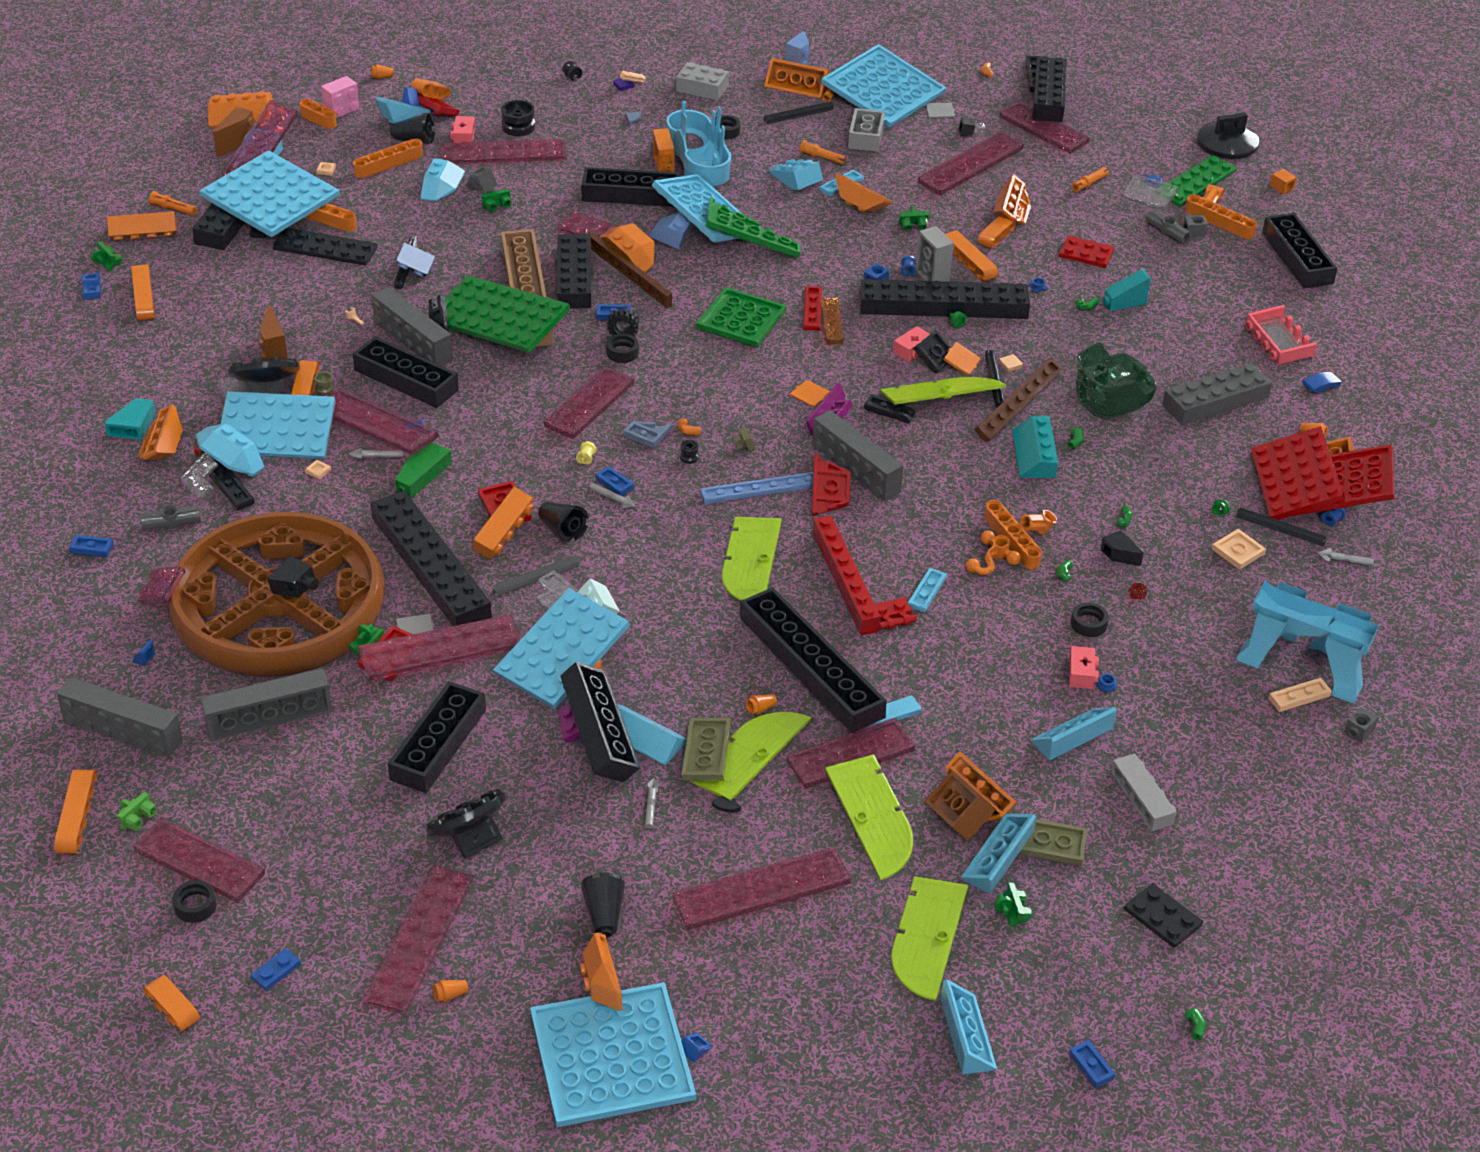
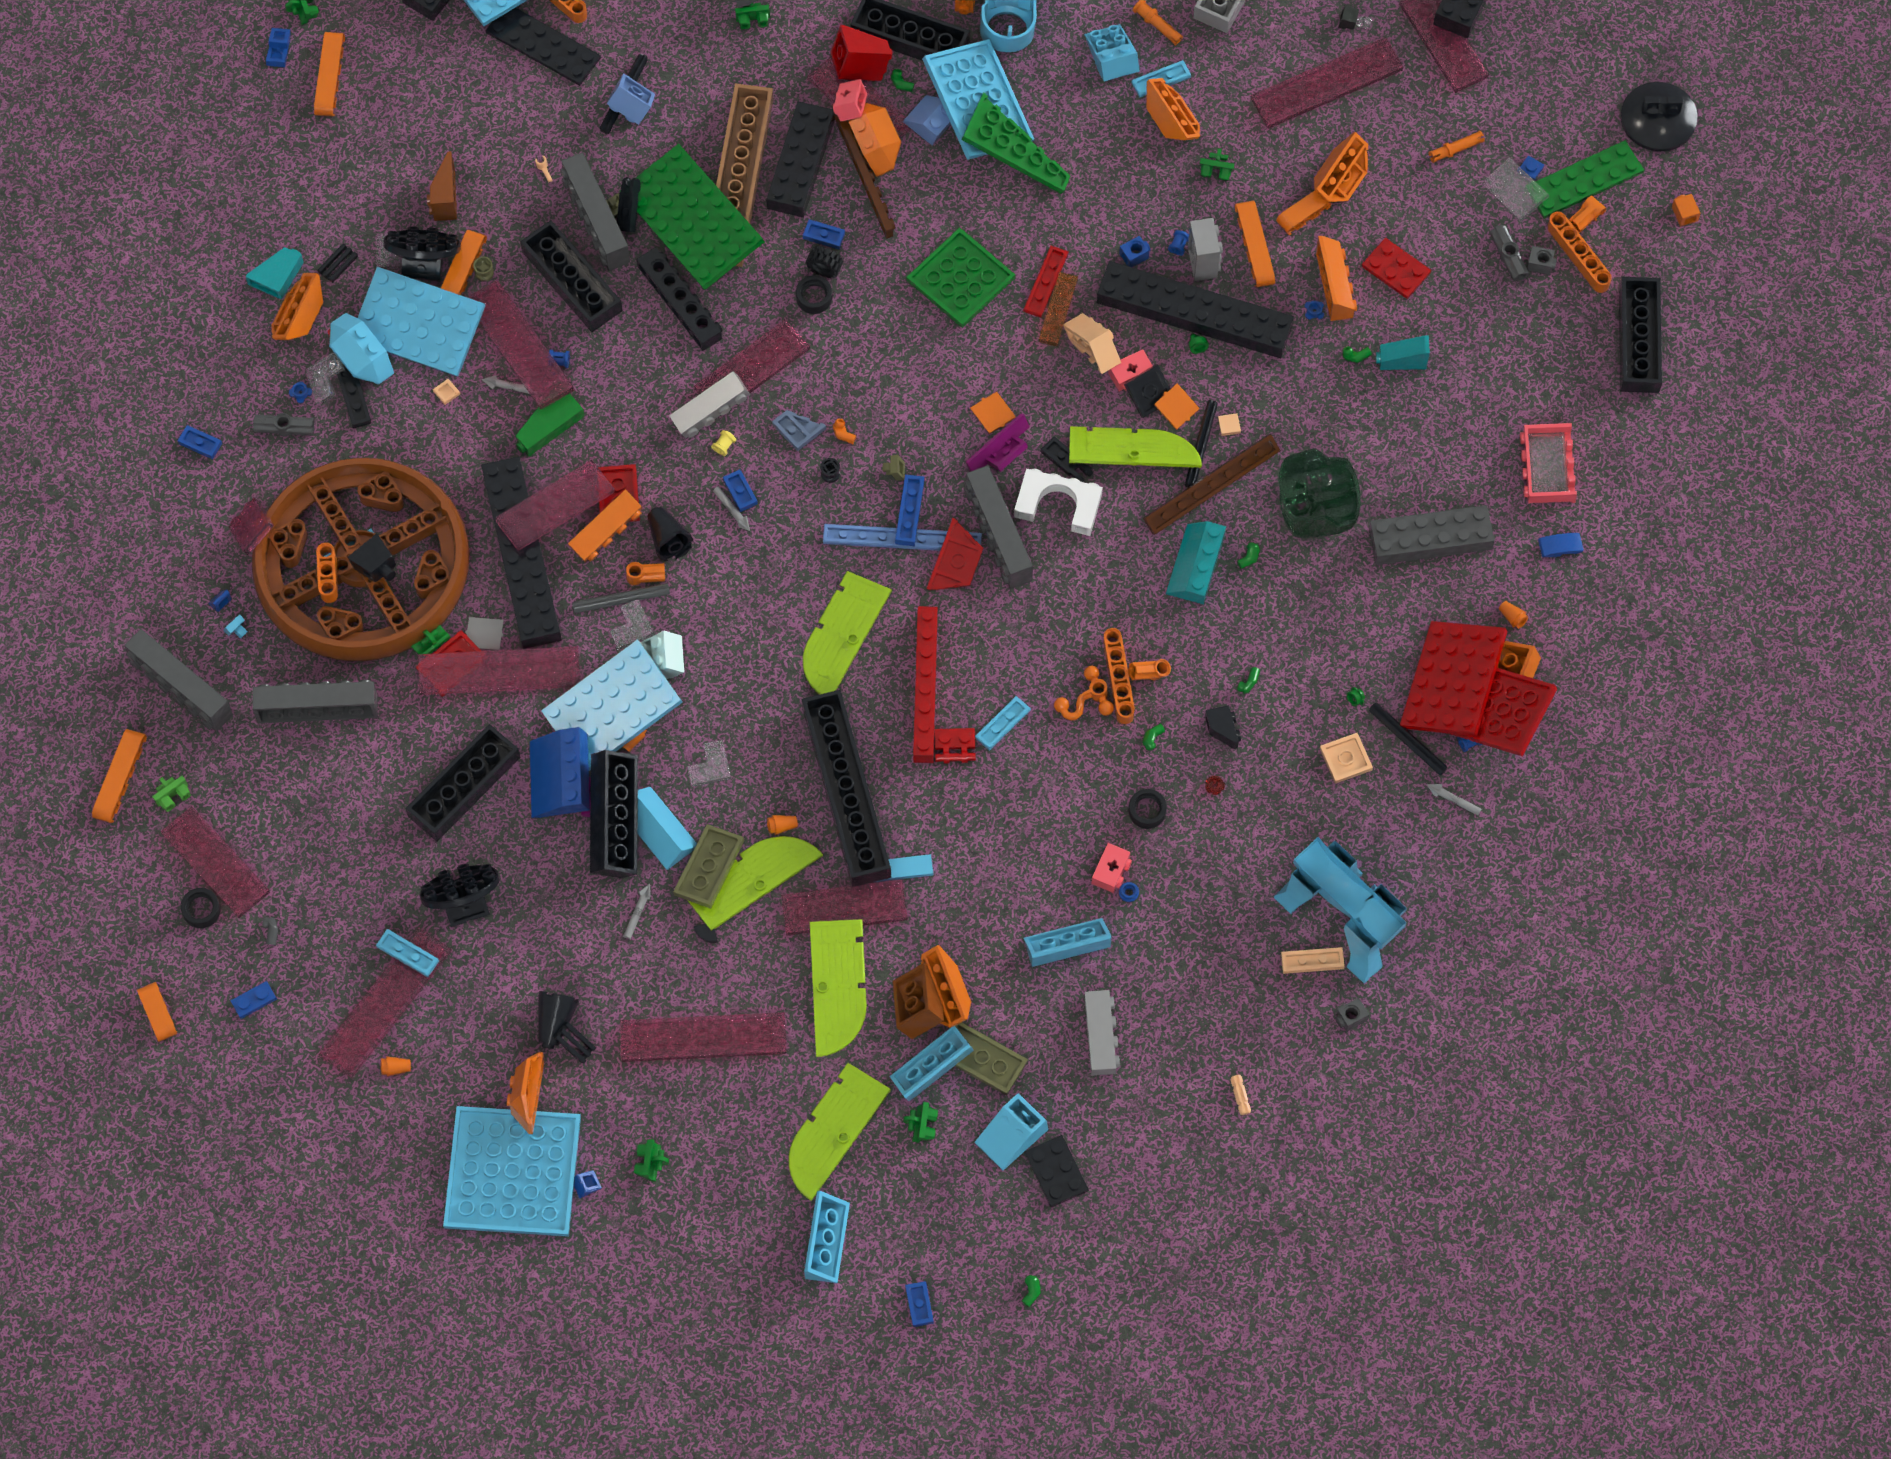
camera: 20 degrees right, 25 degrees up
(166, 669) = (235, 626): none -> medium azure tile
(179, 494) = (300, 386): none -> blue plate
(185, 404) = (332, 258): none -> black tile
(249, 597) = (327, 564): none -> orange beam
(278, 903) = (272, 934): none -> dark grey arm
(430, 885) = (407, 953): none -> medium azure tile
(450, 515) = (554, 505): none -> clear pink plate
(507, 371) = (656, 260): none -> black brick
(530, 708) = (559, 773): none -> blue slope
(546, 552) = (646, 572): none -> orange piece
(564, 426) = (709, 405): none -> light grey brick
(597, 199) = (860, 55): none -> red slope
(601, 223) = (850, 100): none -> coral brick
(634, 917) = (586, 1052): none -> black tile
(635, 219) = (899, 82): none -> green arm
(677, 675) = (712, 771): none -> clear plate
(758, 1004) = (653, 1160): none -> green hips
(772, 463) = (909, 510): none -> blue plate
(874, 326) = (1094, 340): none -> light nougat wedge
(916, 425) = (1038, 484): none -> white arch
(1043, 262) = (1335, 279): none -> orange slope
(1106, 888) = (1012, 1132): none -> medium azure slope
(1298, 811) = (1240, 1095): none -> light nougat axle

